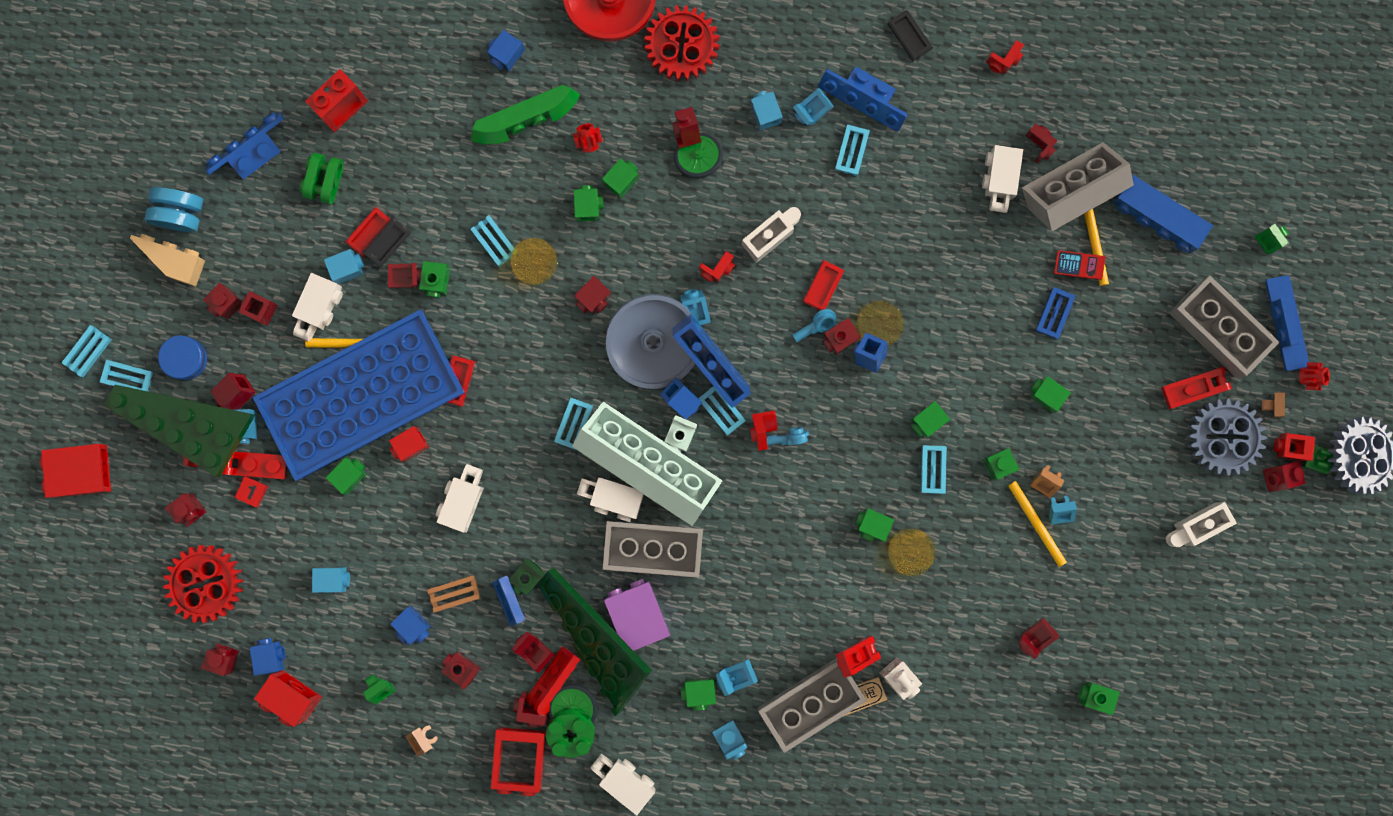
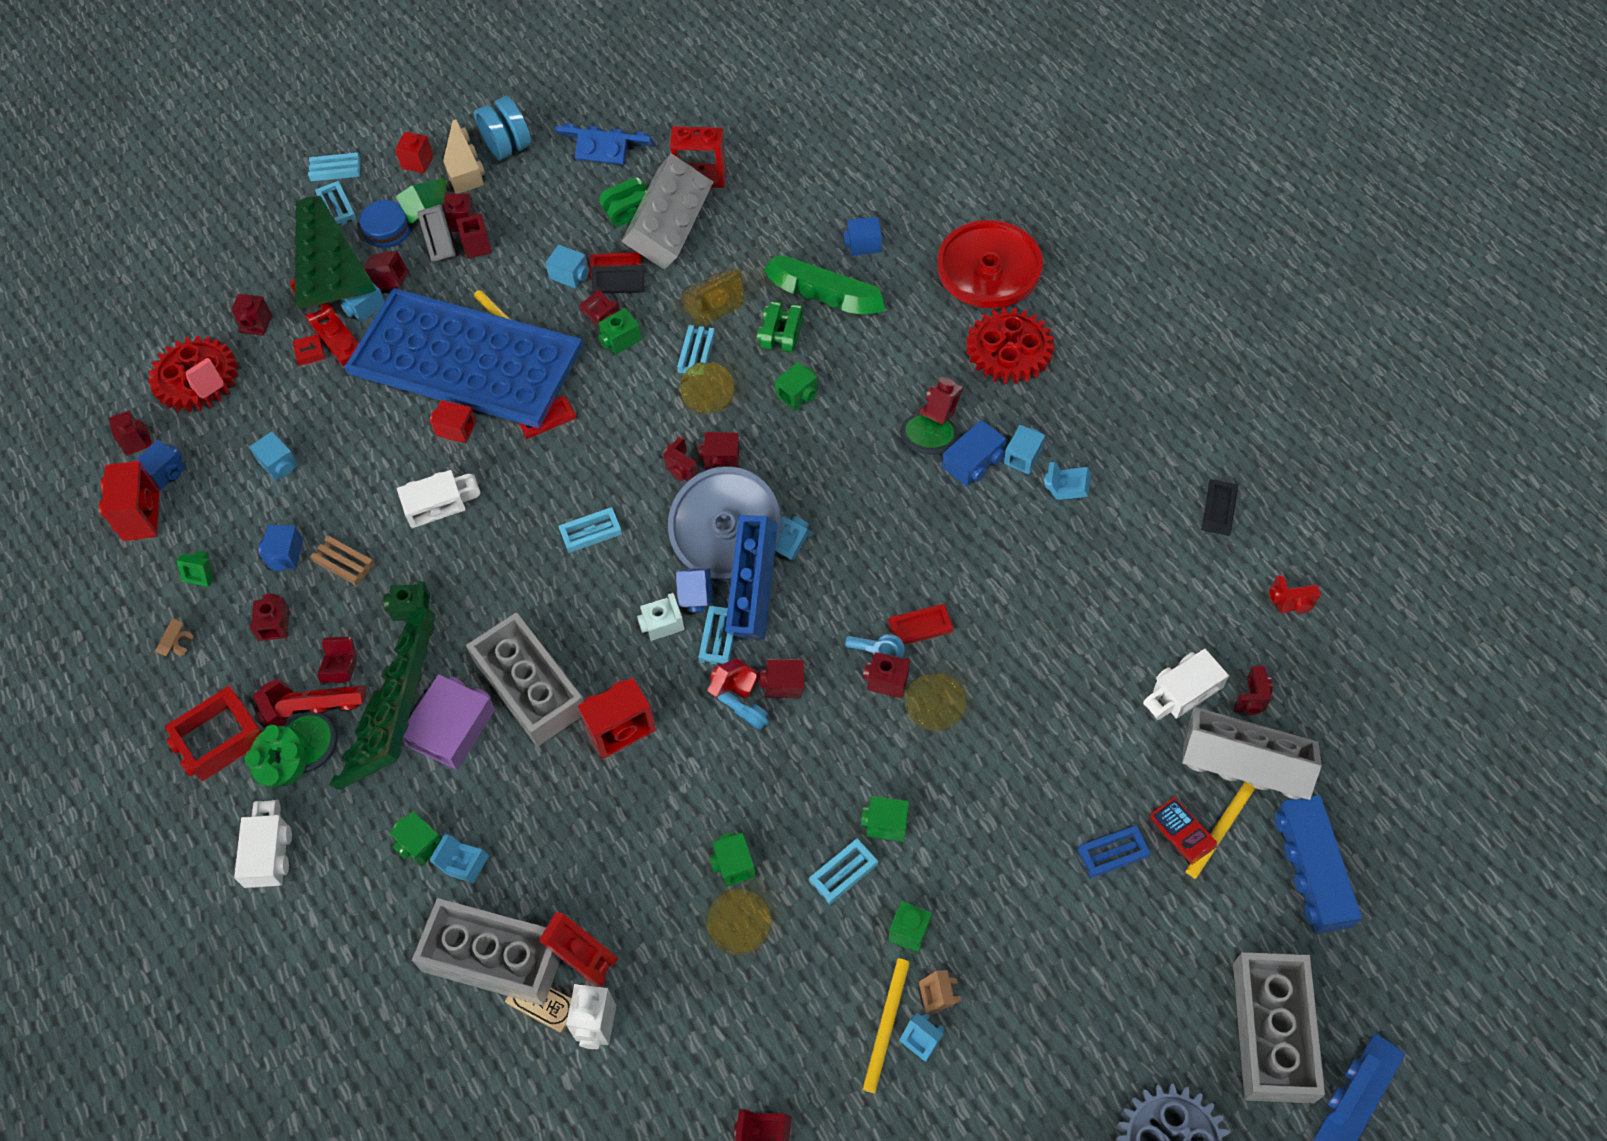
camera: 50 degrees right, 25 degrees down
(75, 471) = (223, 225): red brick -> none
(132, 287) = (414, 152): none -> red brick
(189, 316) = (421, 197): none -> green slope
(226, 582) = (204, 378): none -> coral slope
(232, 331) = (437, 233): none -> tile
(316, 305) = (514, 272): white brick -> none
(347, 475) = (383, 399): green brick -> none
(364, 162) = (667, 211): none -> light grey brick
(464, 193) = (714, 297): none -> clear yellow slope
(508, 601) = (370, 604): tile -> none
(515, 168) = (770, 332): none -> green brick
(579, 330) = (677, 463): none -> dark red bracket
(587, 137) = (854, 341): red gear -> none
(613, 497) = (548, 611): white brick -> none
(621, 178) = (846, 389): green brick -> none
(647, 463) = (604, 604): light aqua brick -> none
(724, 266) = (846, 527): red bracket -> none
(730, 740) = (389, 911): dark azure bracket -> none
(731, 518) = (617, 717): none -> red brick
(740, 143) = (974, 453): none -> blue brick
(771, 233) = (920, 537): white brick -> none
(790, 399) = (782, 678): none -> dark red brick
(846, 169) = (1072, 555): medium azure tile -> none
(866, 95) = (1127, 514): blue bracket -> none
(870, 352) = (898, 709): blue brick -> none
(1049, 394) = (1028, 913): green brick -> none
(1195, 388) = (1189, 1062): red plate -> none
(1272, 238) = (1420, 998): green tile -> none

